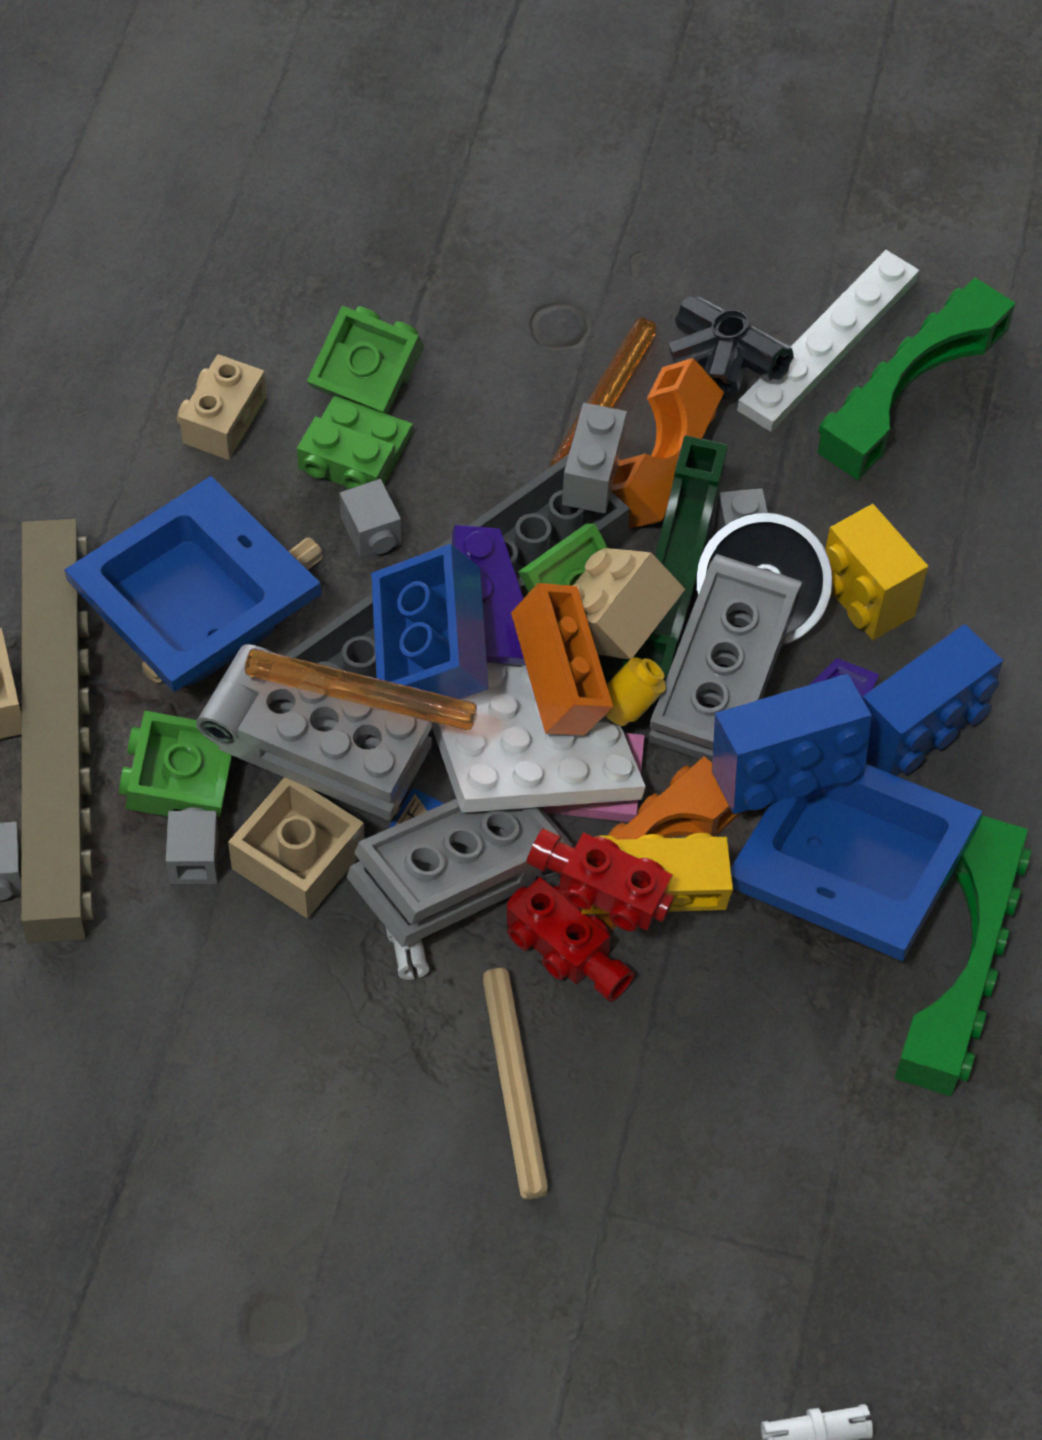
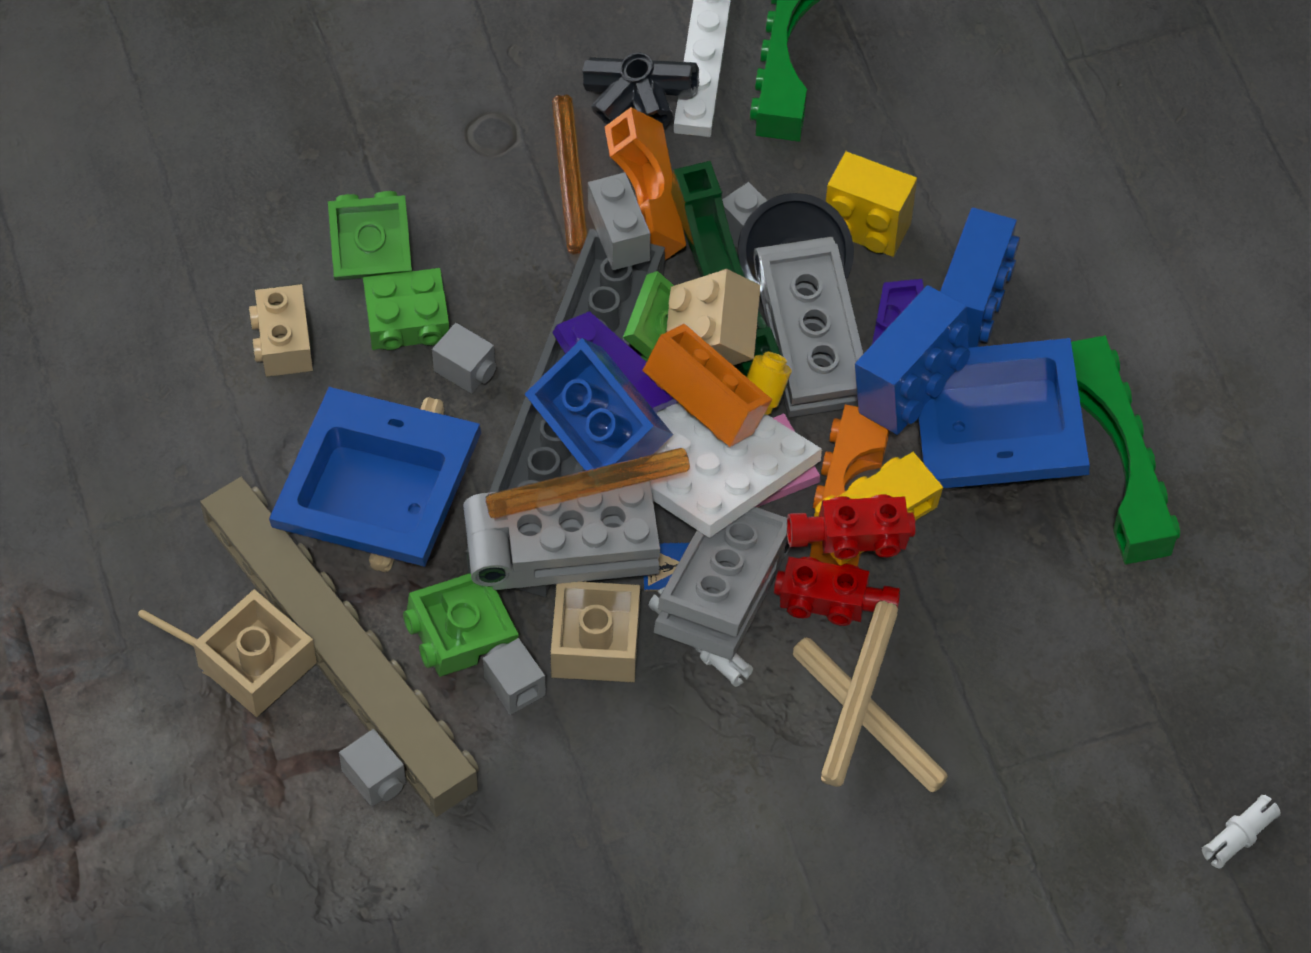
camera: 30 degrees left, 0 degrees up
(510, 1054) = (859, 694): none -> tan axle

